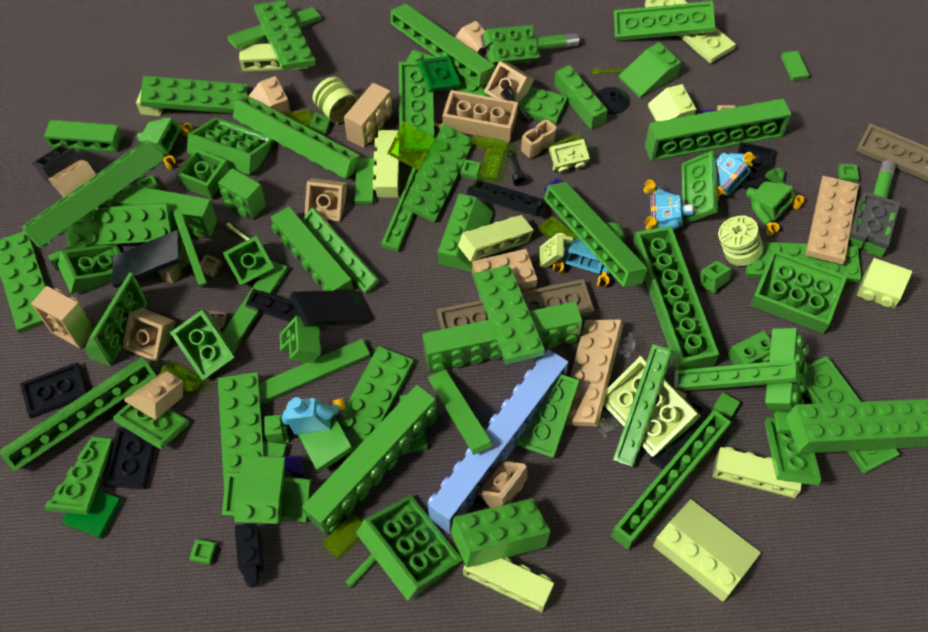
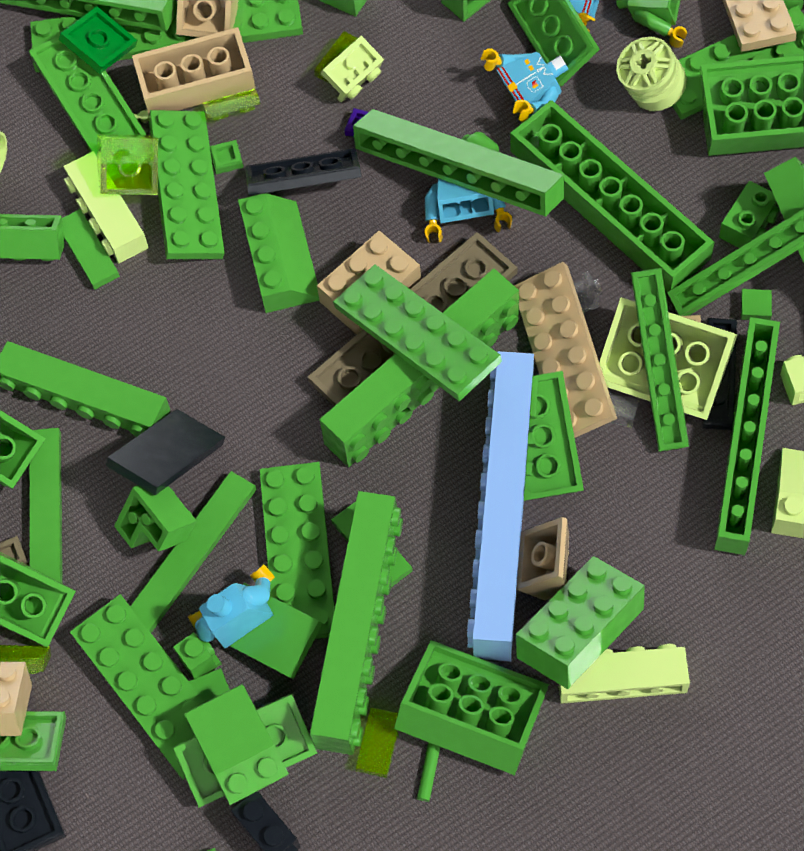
camera: 25 degrees left, 5 degrees up
(272, 305) = (82, 491): black tile -> none
(294, 465) = (255, 688): dark purple tile -> none
(326, 197) = (50, 304): tan slope -> none
(340, 250) = (120, 365): bright green tile -> none
(368, 115) = (35, 151): tan brick -> none
(401, 219) = (173, 274): bright green tile -> none
(460, 412) = (431, 496): bright green tile -> none
(491, 164) = (251, 135): clear neon green plate -> none
(495, 237) = (327, 236): yellowish green brick -> none
(509, 95) = (219, 22): black hinge -> none
(518, 178) = (301, 134): black hinge -> none
(538, 138) = (296, 65): tan brick -> none
(553, 226) = (402, 186): clear neon green plate -> none
(553, 249) = (415, 213): yellowish green bracket -> none
(714, 276) = (644, 139): bright green brick -> none

